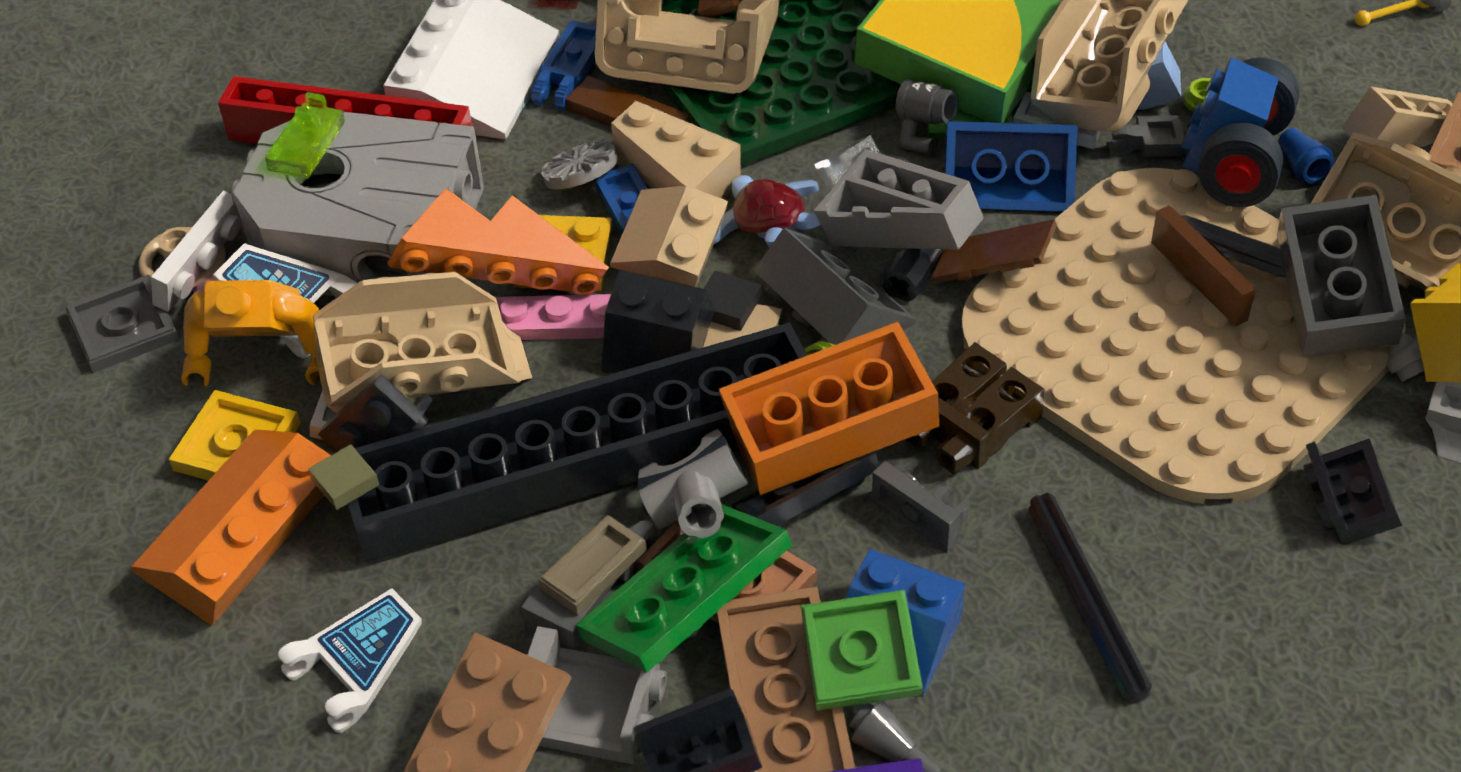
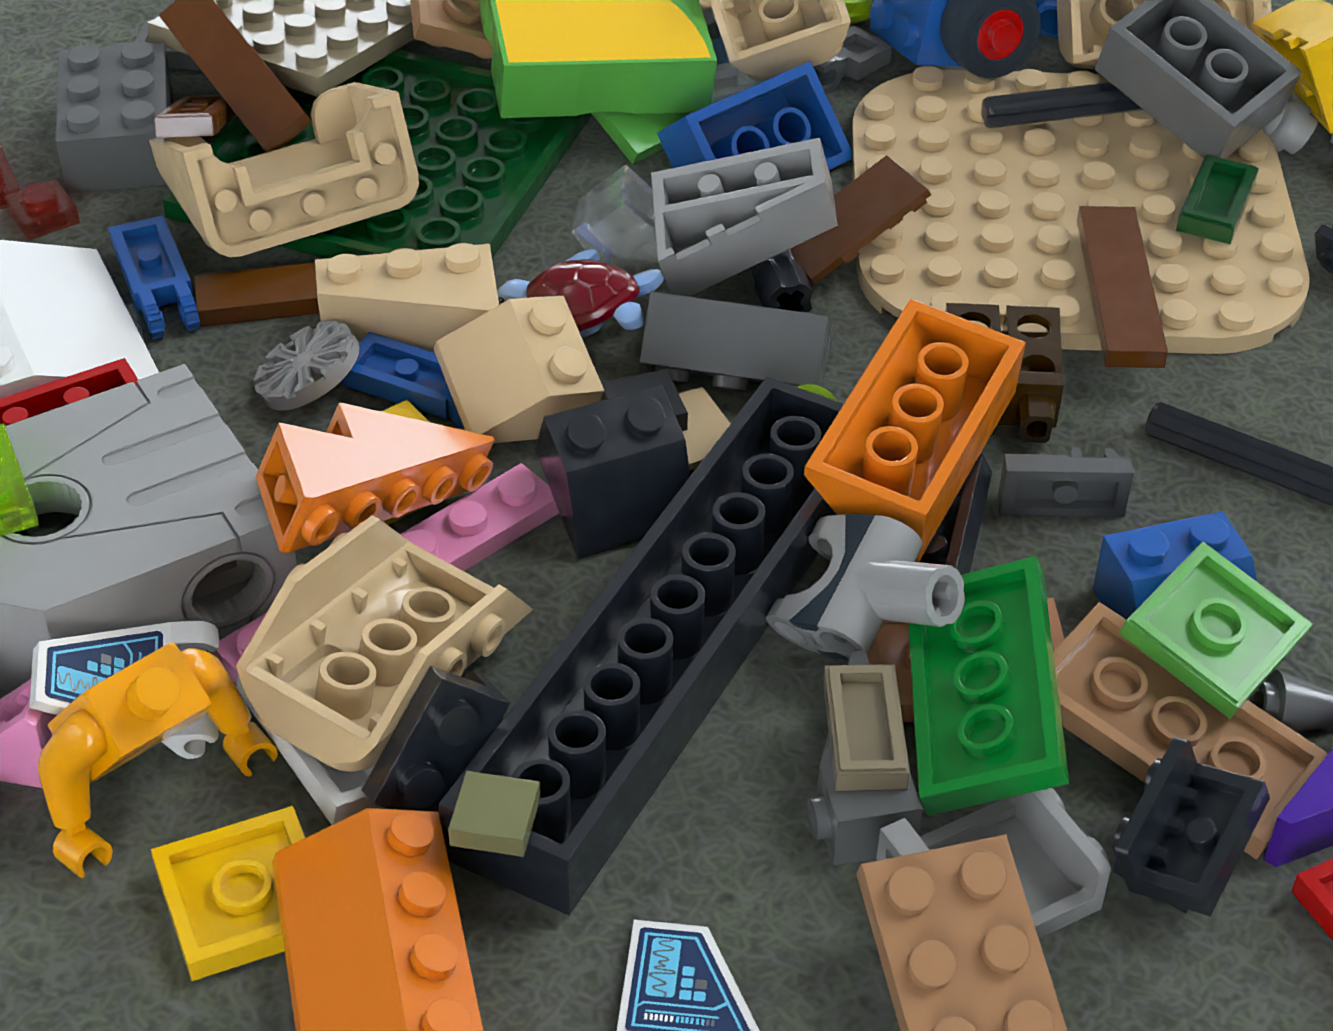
camera: 45 degrees left, 5 degrees down
(925, 104) = (623, 120): dark grey piece -> none
(1113, 399) = (1121, 287): none -> reddish brown tile
(1203, 265) = (1055, 130): reddish brown tile -> none
(1269, 380) = (1217, 199): none -> dark green tile

